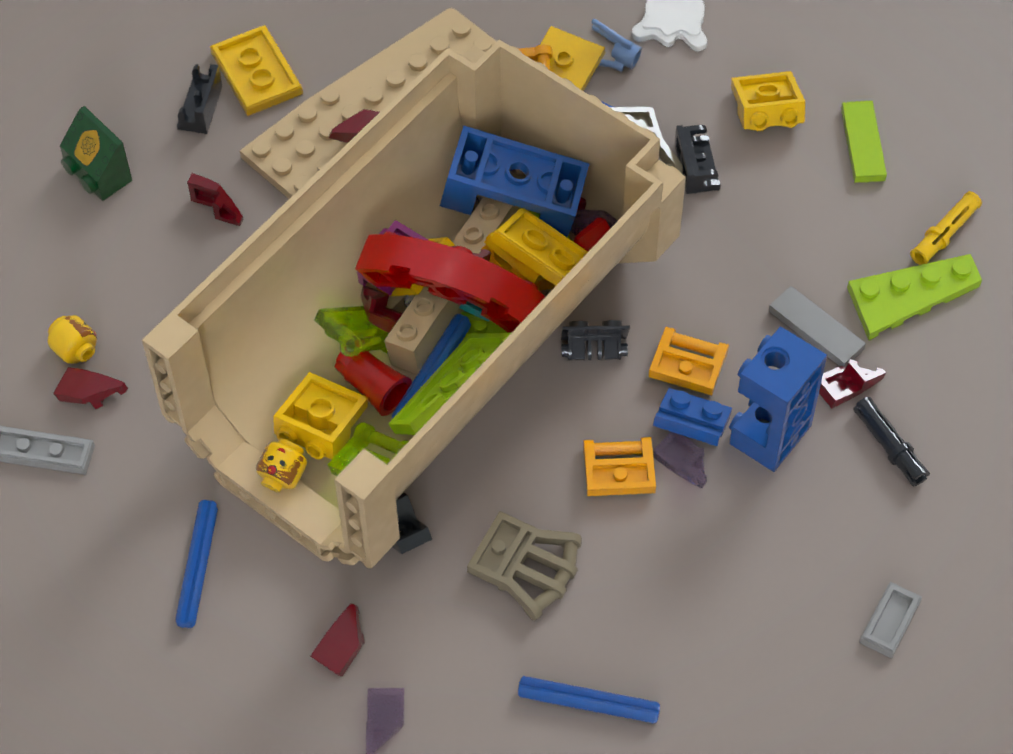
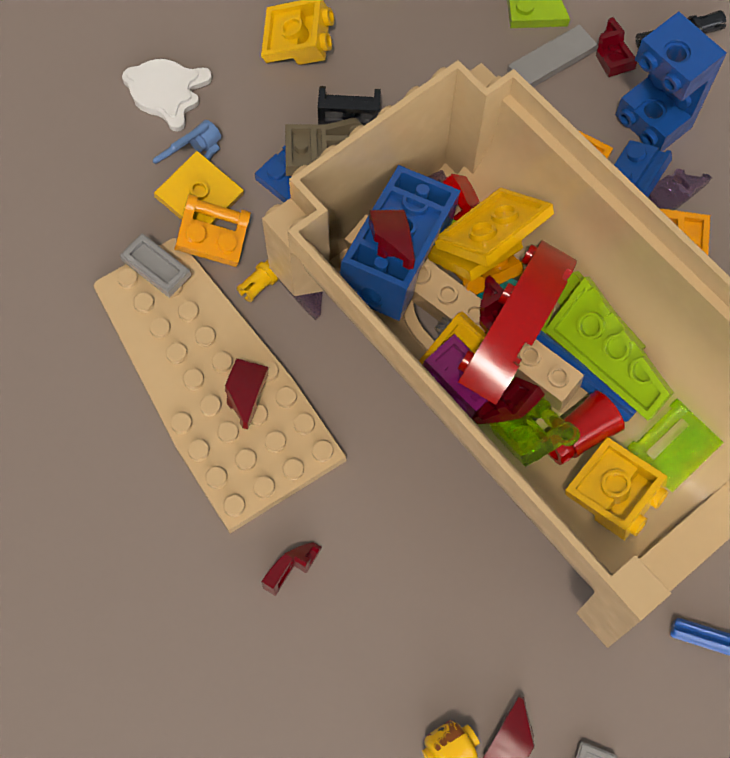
camera: 80 degrees left, 10 degrees up
(95, 155) = (205, 693): dark green slope -> none
(200, 100) = (145, 564): black hinge -> none
(256, 70) = (113, 498): yellow tile -> none
(281, 465) = (673, 535): yellow head -> none
(479, 32) = (155, 265): none -> light grey tile
(498, 153) = (393, 235): none -> dark red slope

